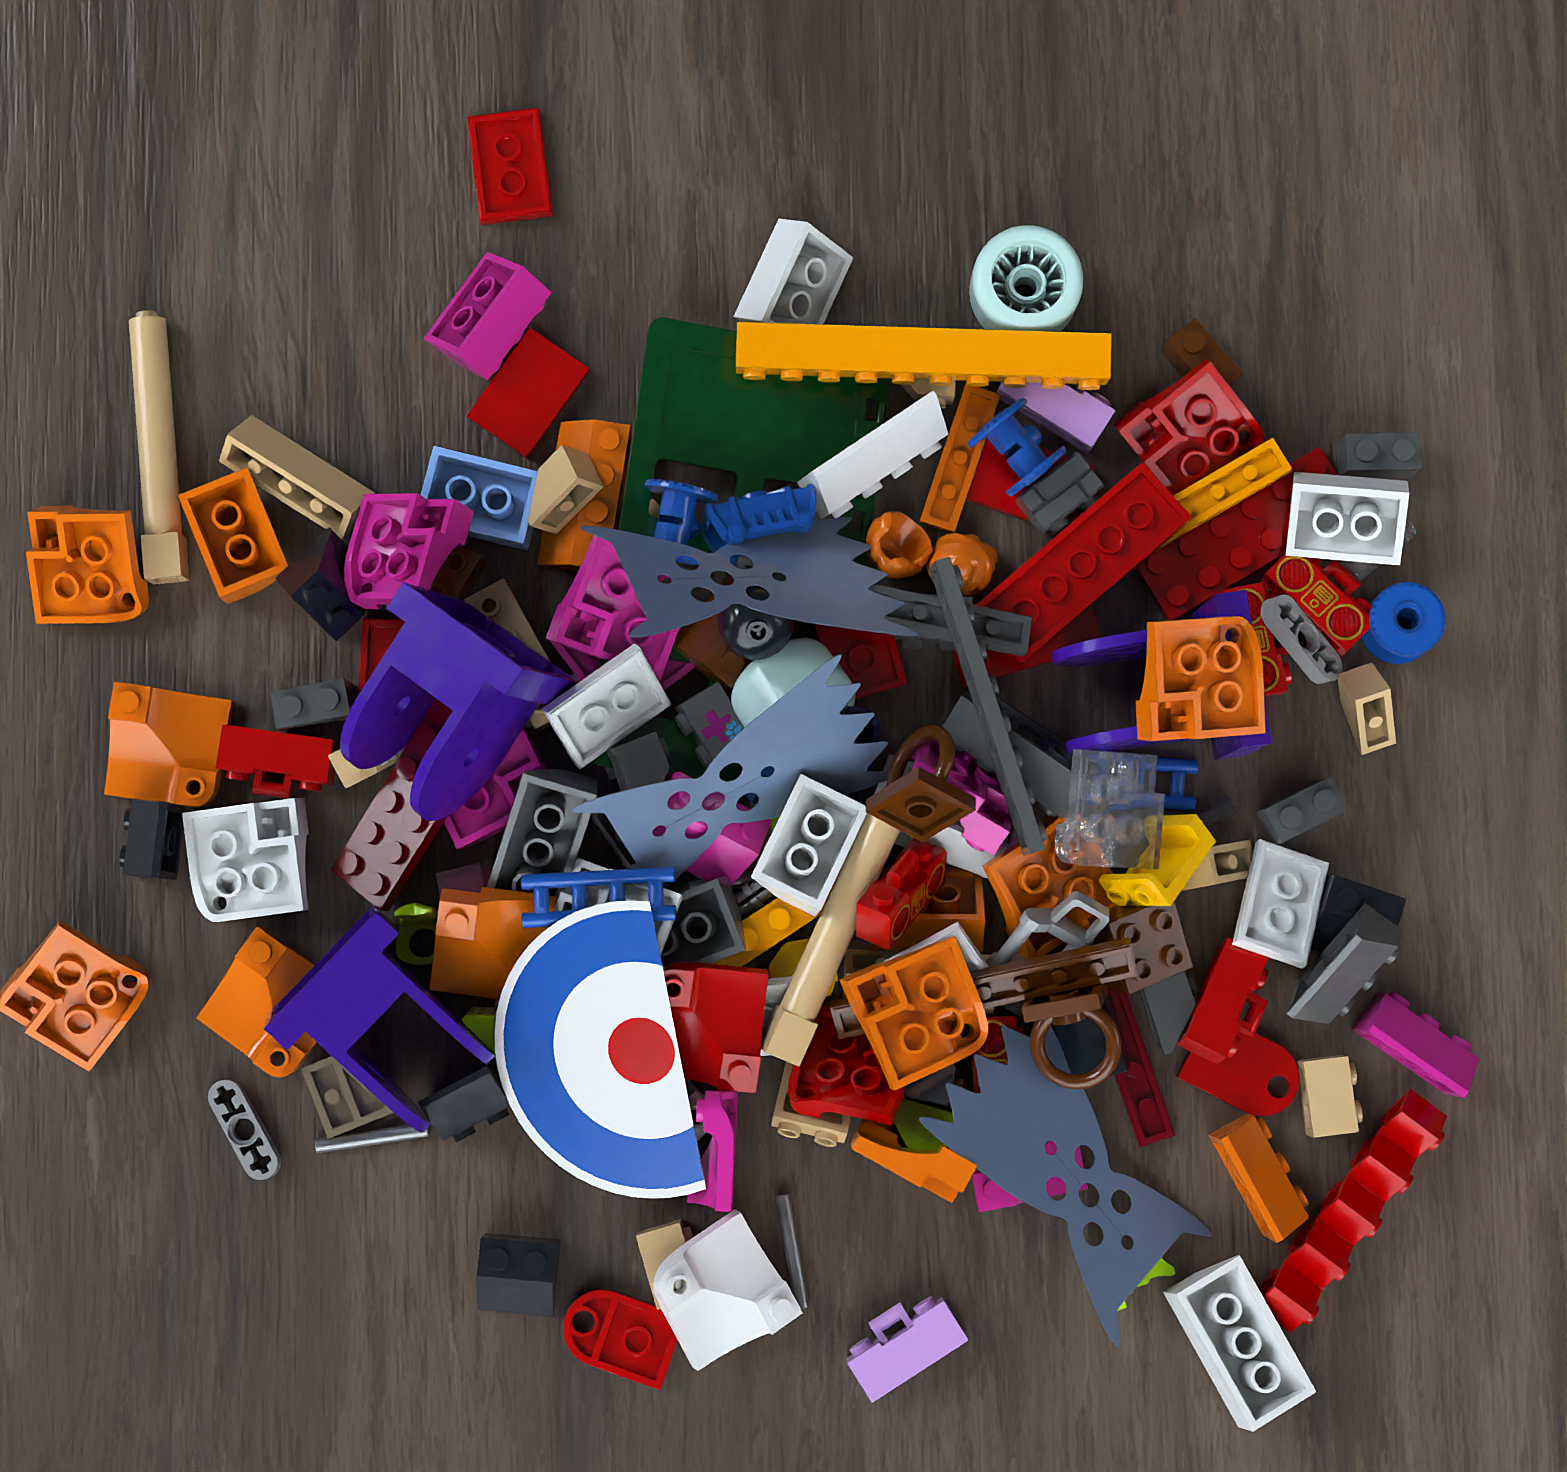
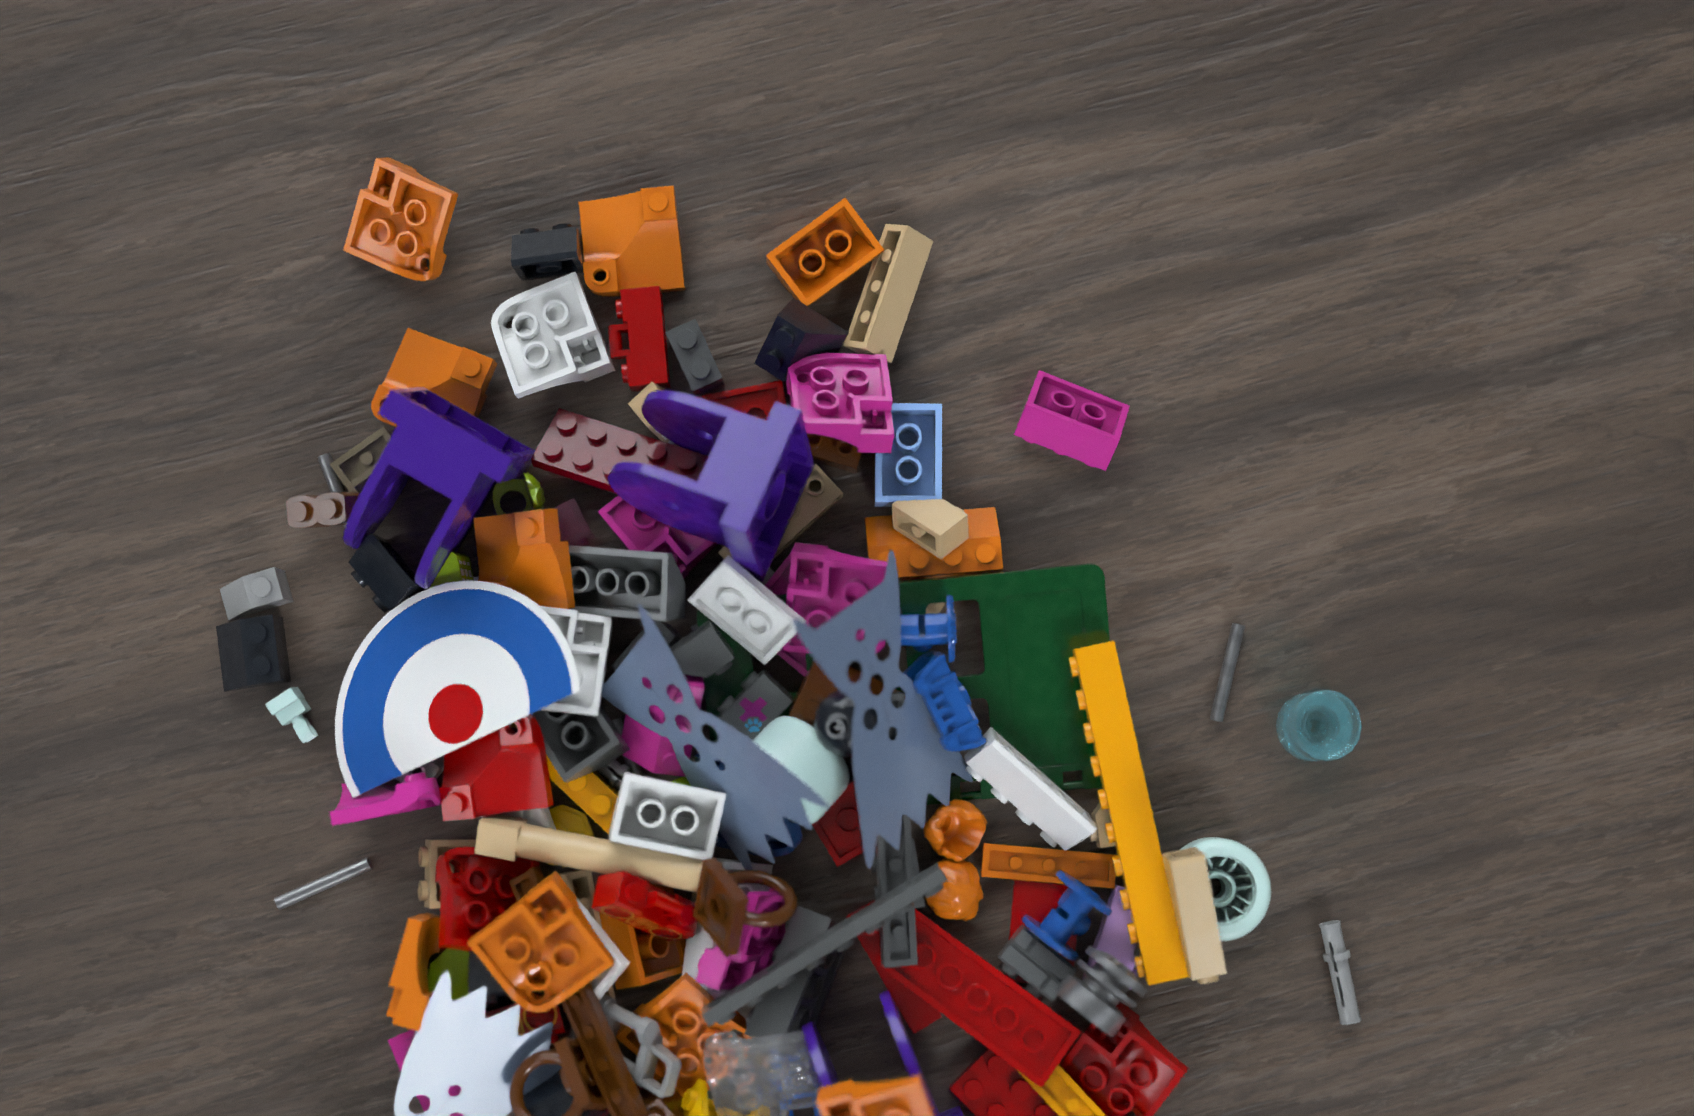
camera: 75 degrees right, 0 degrees up
(84, 566) = (767, 134): orange slope -> none
(163, 543) = (805, 195): tan brick -> none
(239, 1100) = (313, 415): light grey beam -> none
(378, 1153) = (320, 510): none -> brick
(452, 1256) = (256, 593): none -> light grey slope
(509, 166) = (1210, 406): red tile -> none
(528, 393) = (1013, 473): red tile -> none
(580, 880) = (590, 626): blue bar -> none
(590, 1244) = (290, 708): none -> light aqua piece
(626, 1338) = (221, 759): red tile -> none
(658, 1244) = (293, 776): tan slope -> none
(723, 1291) = (272, 833): white slope -> none
(785, 212) = (1227, 672): none -> flat silver bar
(794, 277) = (1170, 680): white slope -> none
(889, 120) = (1336, 726): none -> clear light blue wheel
(918, 1344) = (258, 1005): lavender piece -> none
(1045, 306) = (1195, 913): none -> tan slope
(1104, 427) = (1101, 990): none -> flat silver wheel
(1132, 182) = (1340, 973): none -> light grey pin
(1194, 345) = (1199, 1054): reddish brown brick -> none

